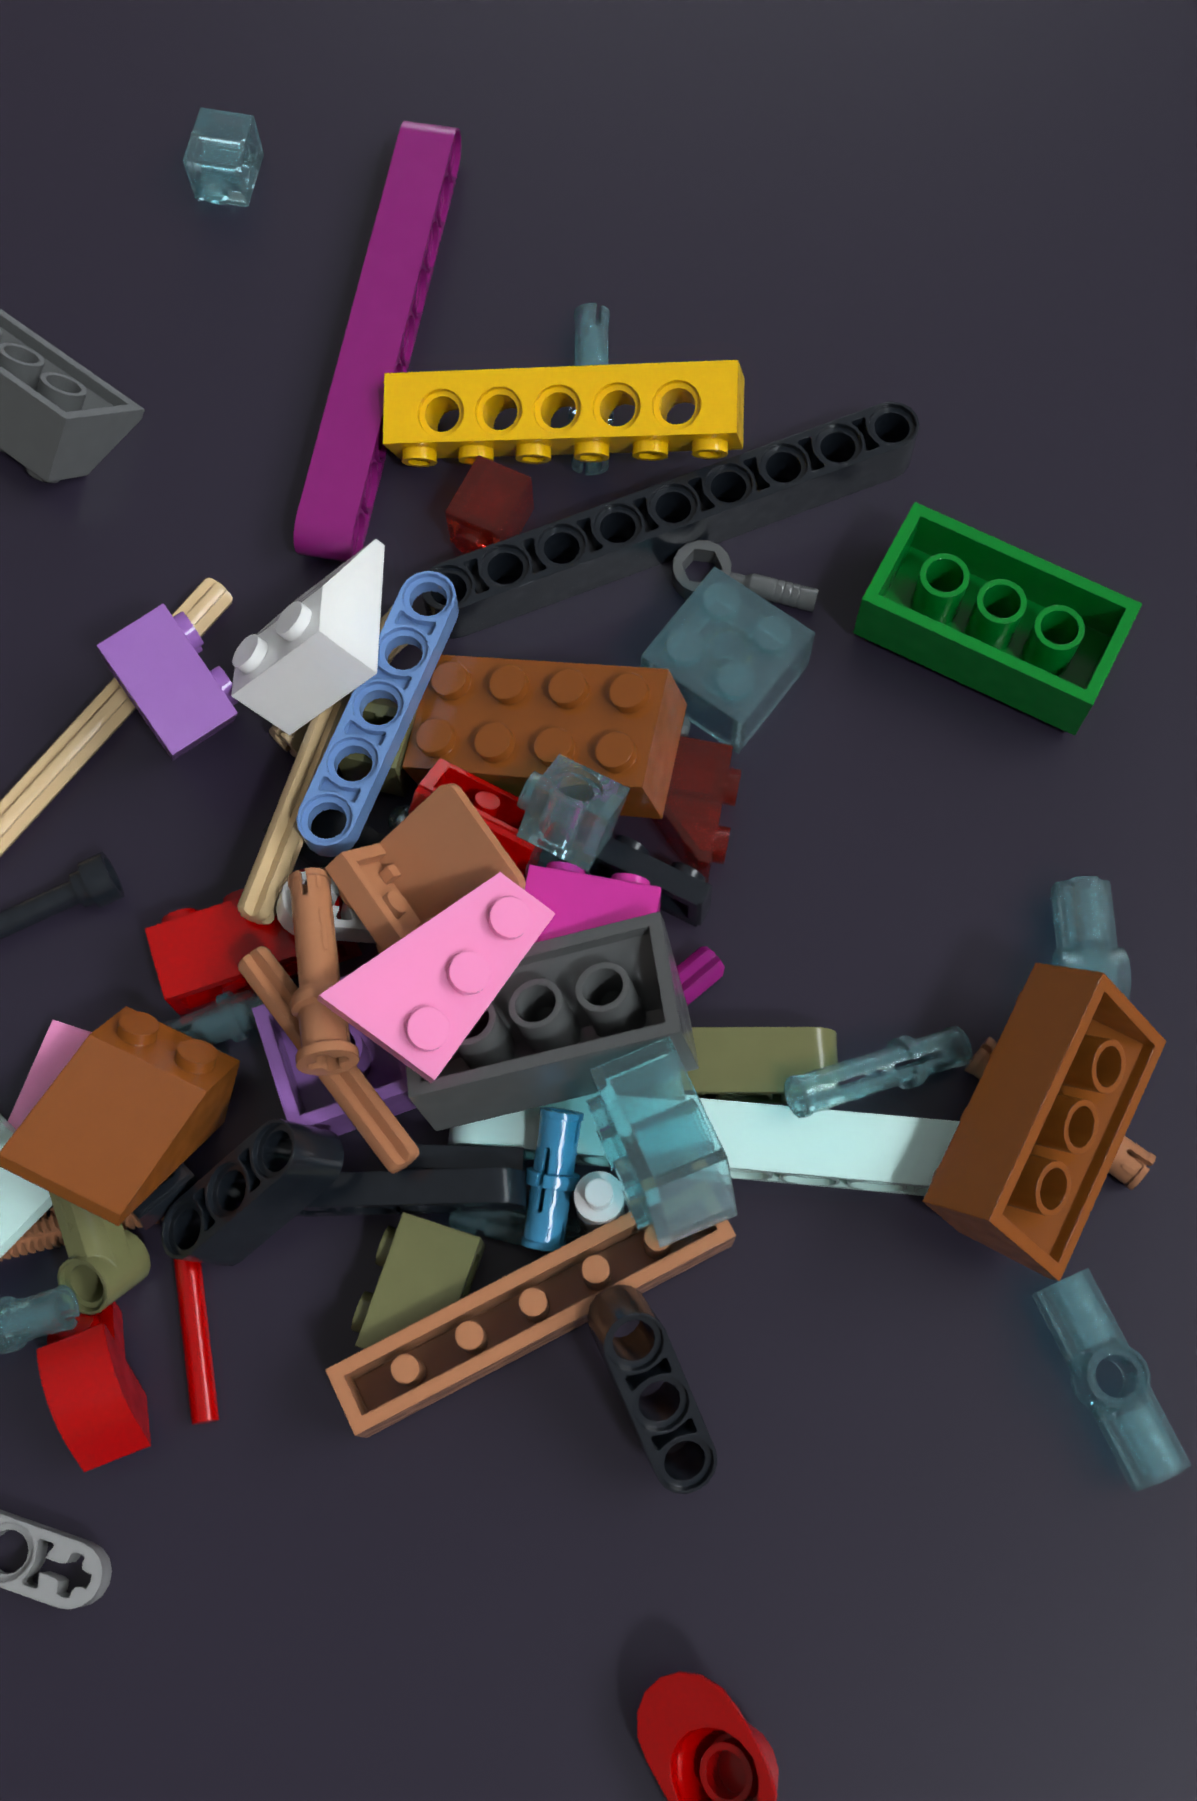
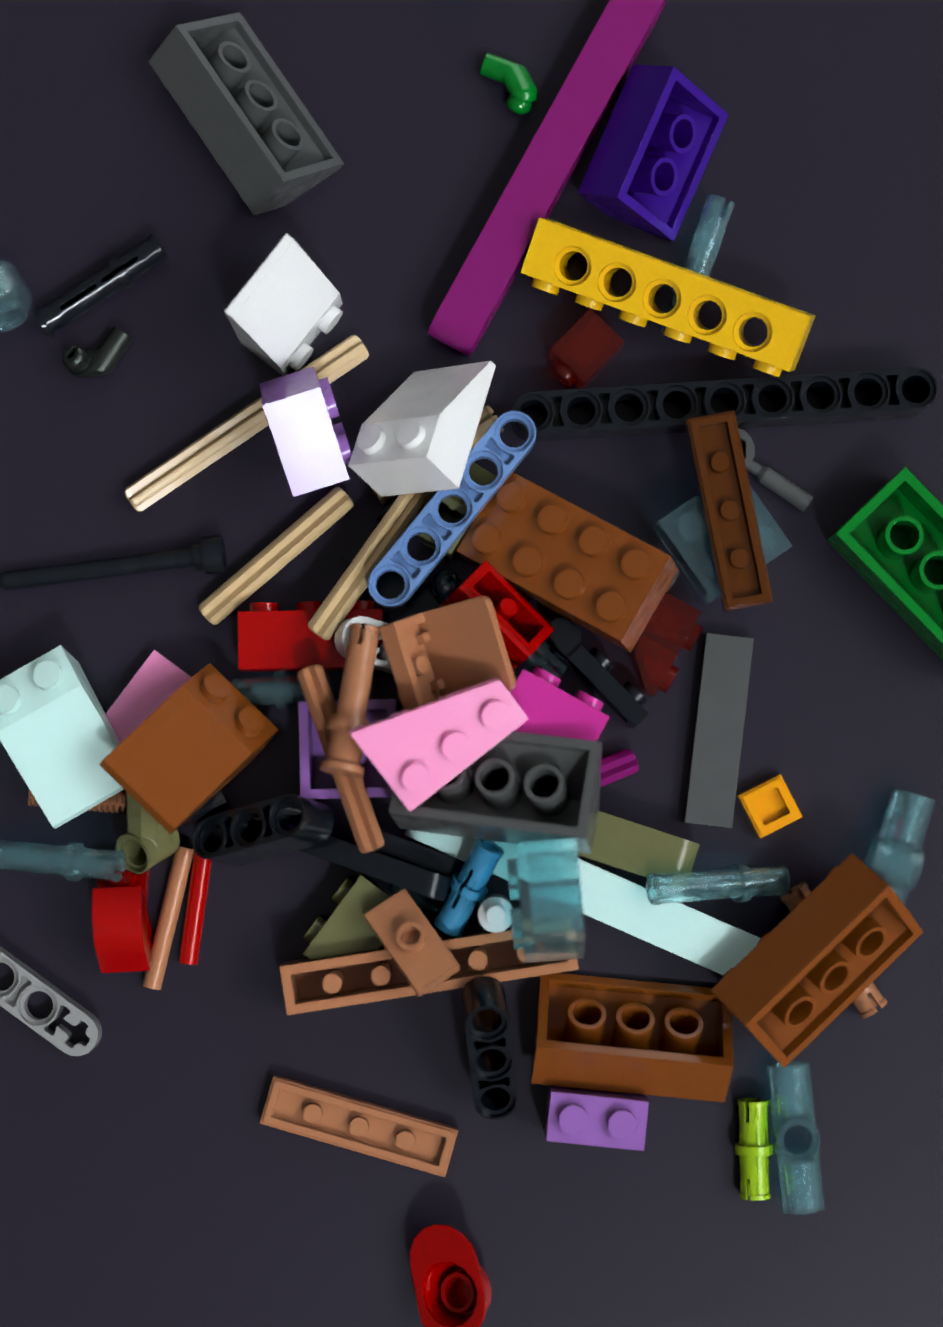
camera: 15 degrees right, 15 degrees up
(99, 548) = (285, 308): none -> white slope
(162, 1369) = (168, 917): none -> nougat bar
(180, 859) = (276, 555): none -> tan axle
(314, 265) = (516, 80): none -> green arm
(496, 282) = (653, 150): none -> dark purple slope
(498, 1272) = (412, 942): none -> nougat plate
(509, 1574) = (359, 1125): none -> nougat tile
(570, 811) = (565, 640): clear light blue brick -> none
(724, 612) = (729, 511): none -> reddish brown tile
(807, 893) = (718, 730): none -> dark grey tile
(832, 1442) = (596, 1118): none -> medium lavender brick
(843, 1317) = (632, 1037): none -> dark orange slope
(905, 962) = (769, 806): none -> light orange tile
(1061, 1417) = (753, 1149): none -> lime pin

